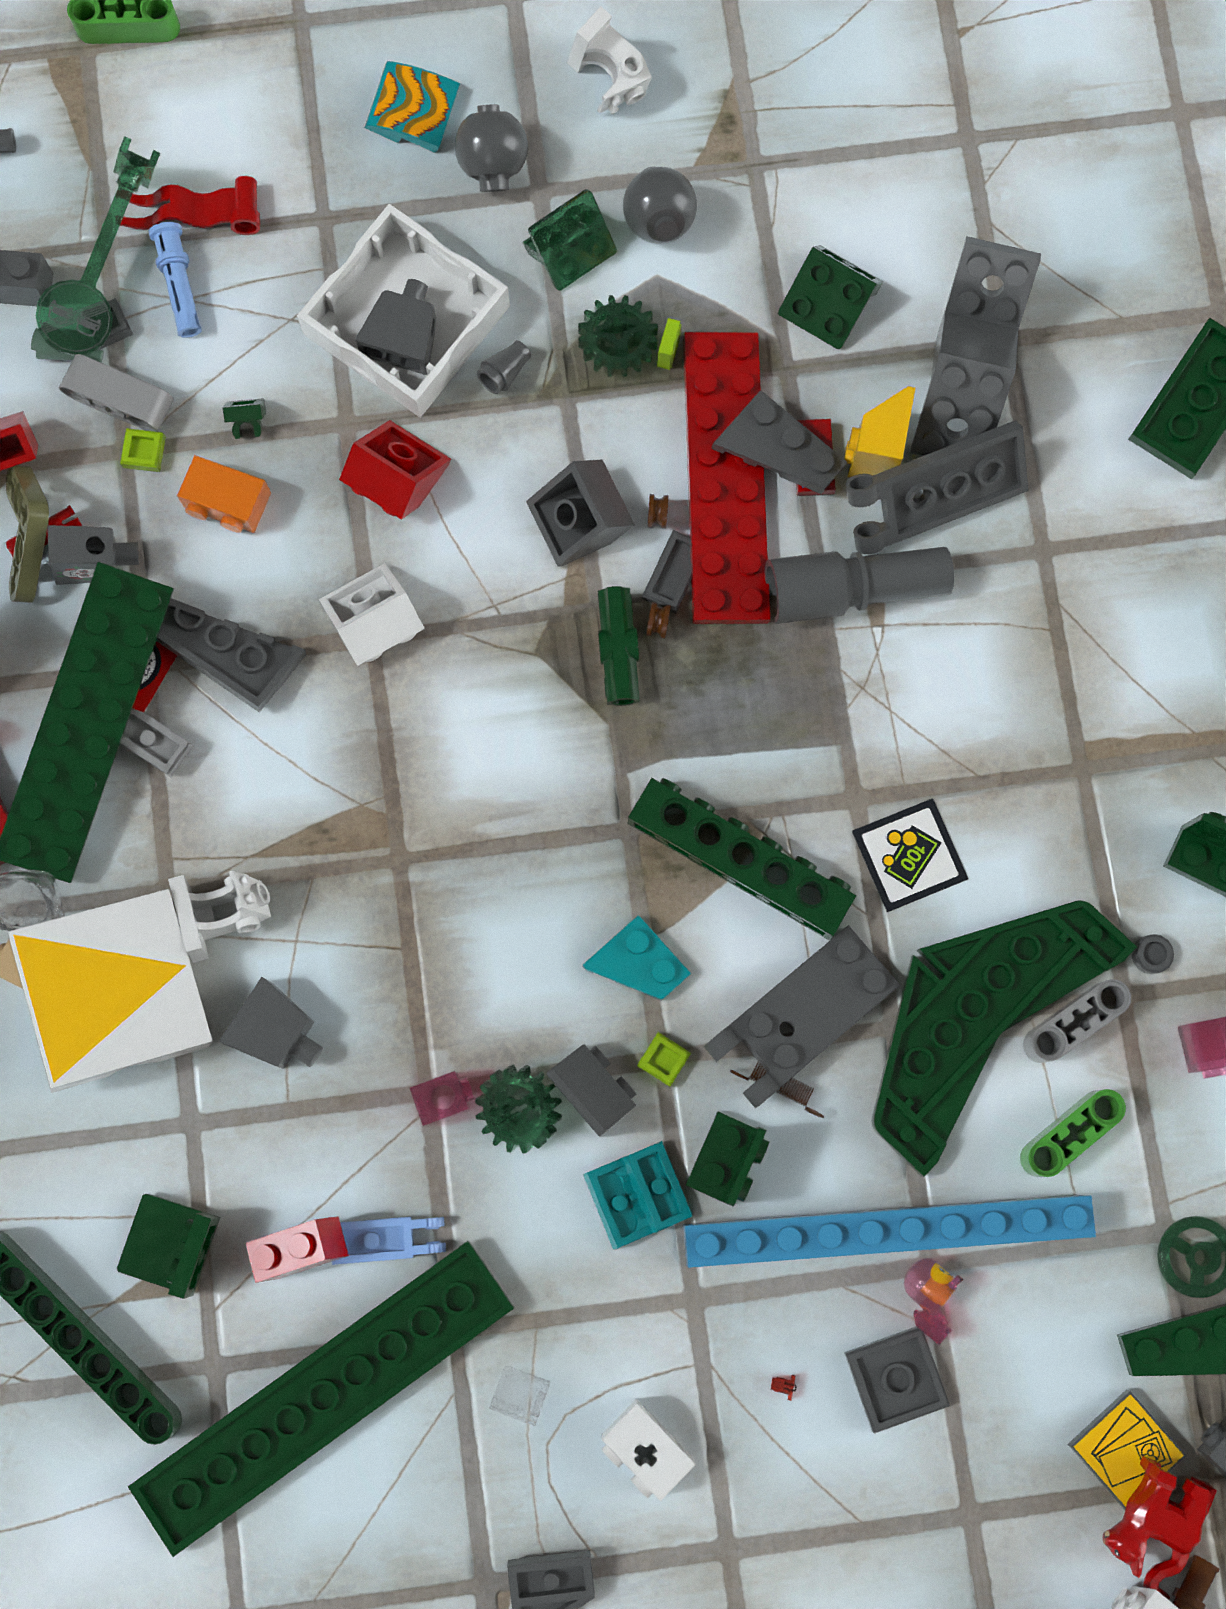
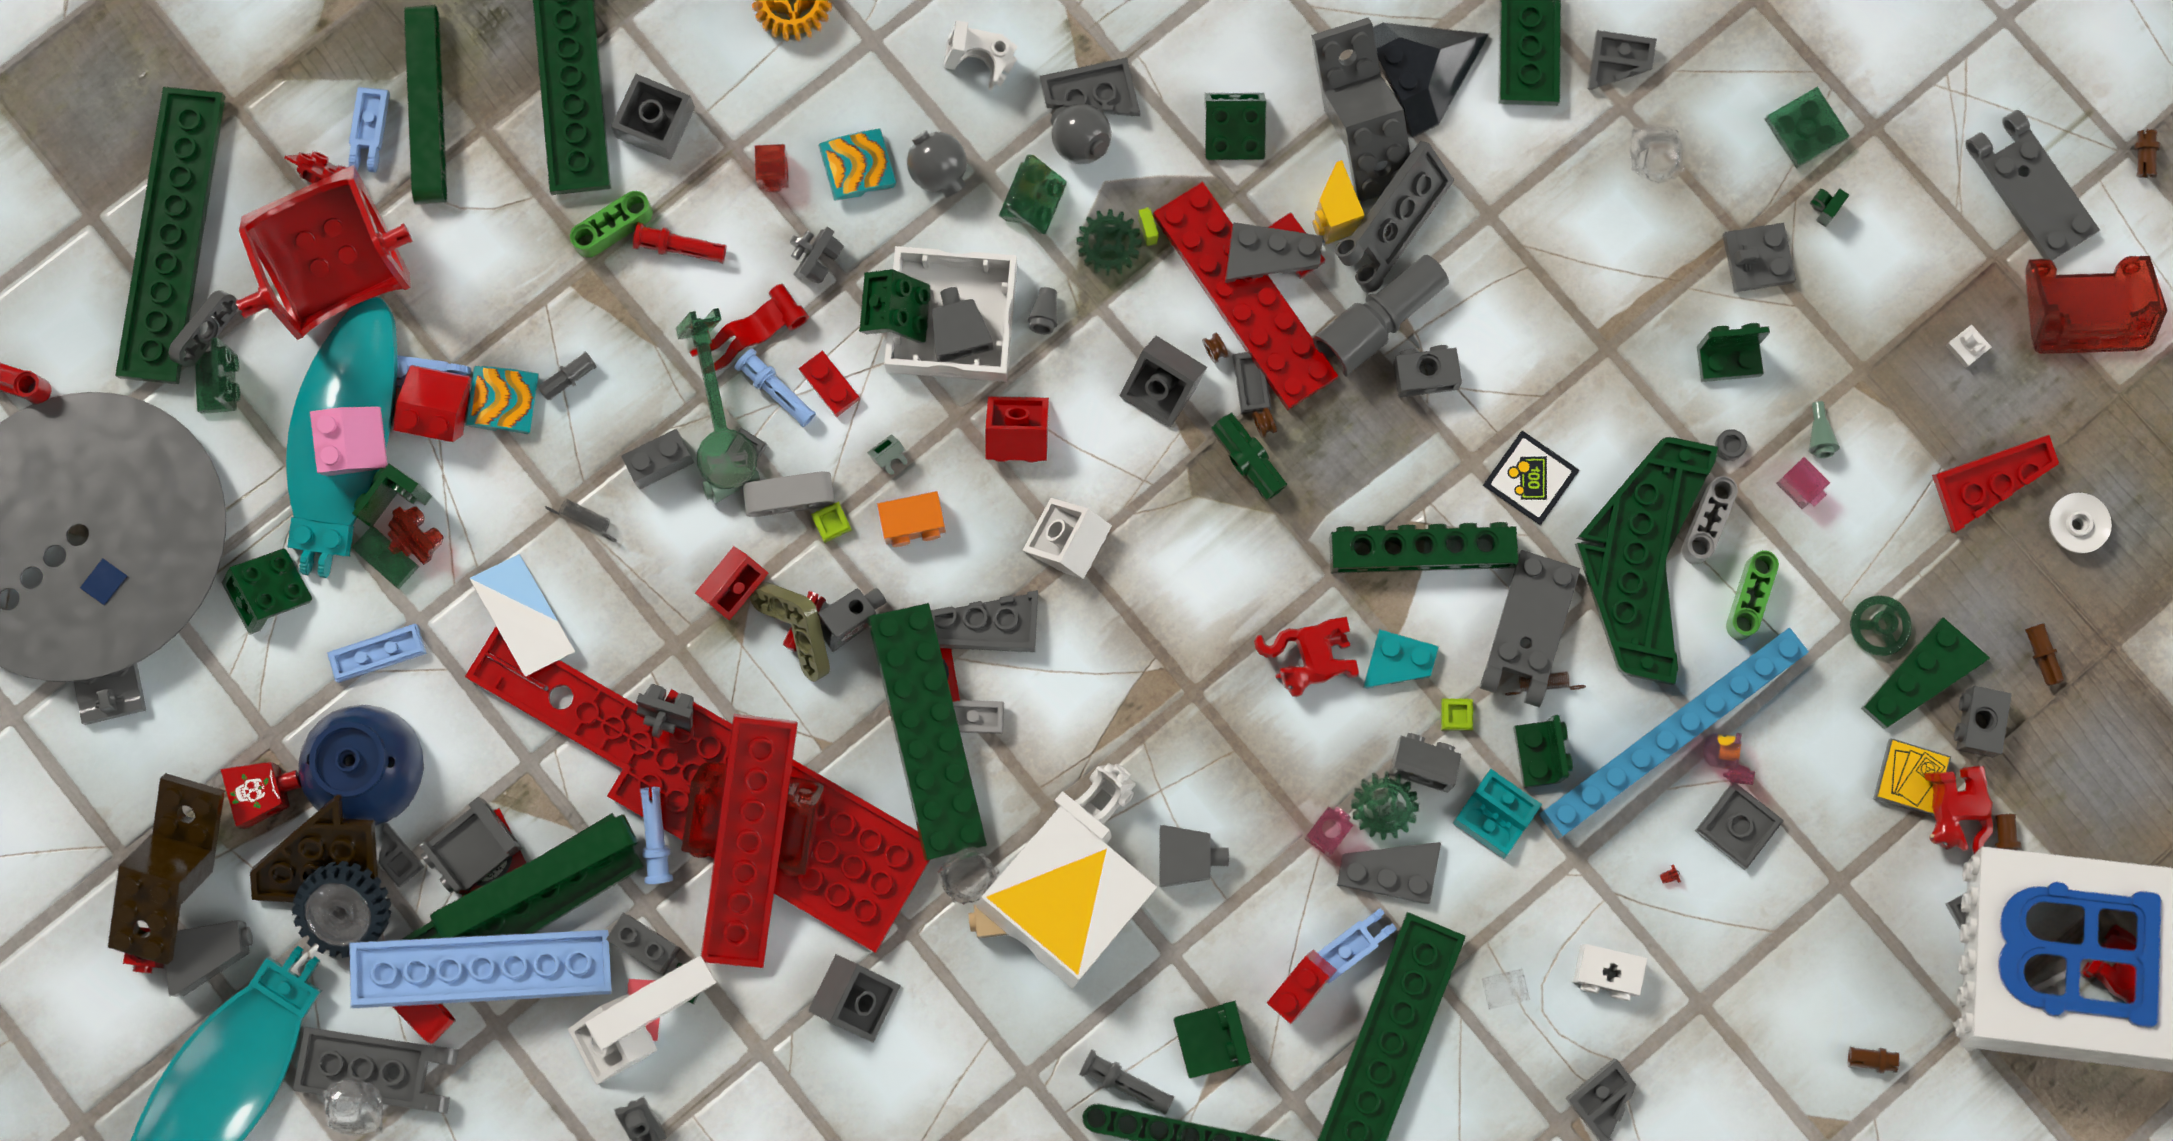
camera: 30 degrees left, 0 degrees up
(37, 1214) = (1112, 1076): none -> dark grey pin
(166, 67) = (665, 241): none -> red pin
(236, 309) = (829, 383): none -> red plate
(293, 176) = (823, 243): none -> dark grey hips
(322, 56) = (771, 167): none -> clear red brick
(350, 265) = (895, 305): none -> dark green bracket
(483, 1186) = (1392, 872): none -> dark grey wing
(555, 891) = (1316, 652): none -> red animal
(717, 173) = (1100, 85): none -> dark grey wing
(880, 691) = (1411, 380): none -> dark grey brick
(1070, 356) = (1425, 68): none -> black wedge

